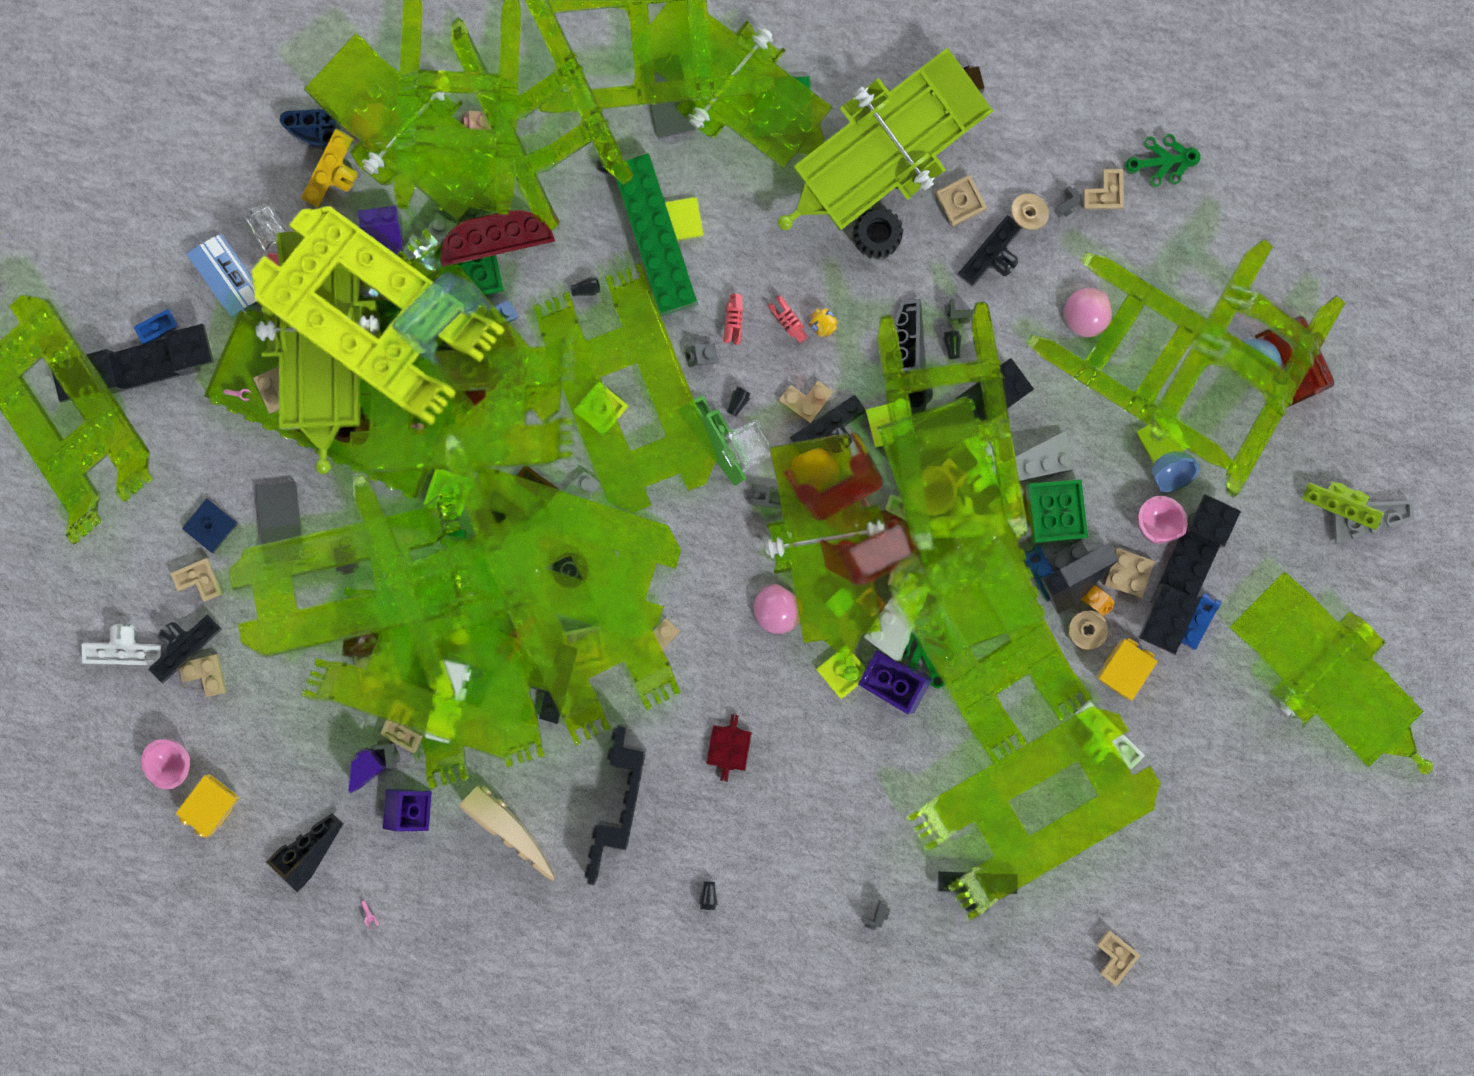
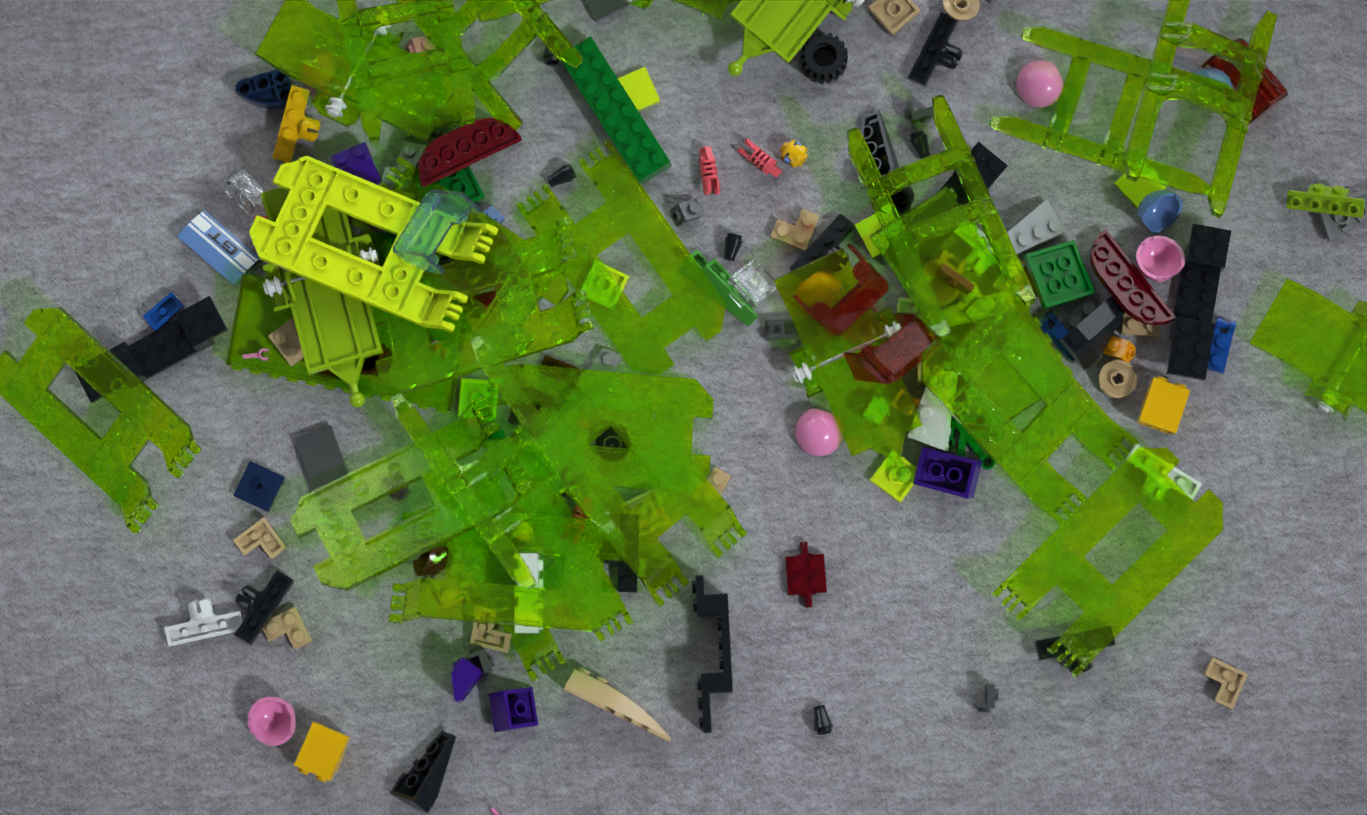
camera: 10 degrees left, 5 degrees down
(950, 494) = (954, 279): none -> pearl gold plate
(1122, 537) = (1127, 283): none -> dark red plate

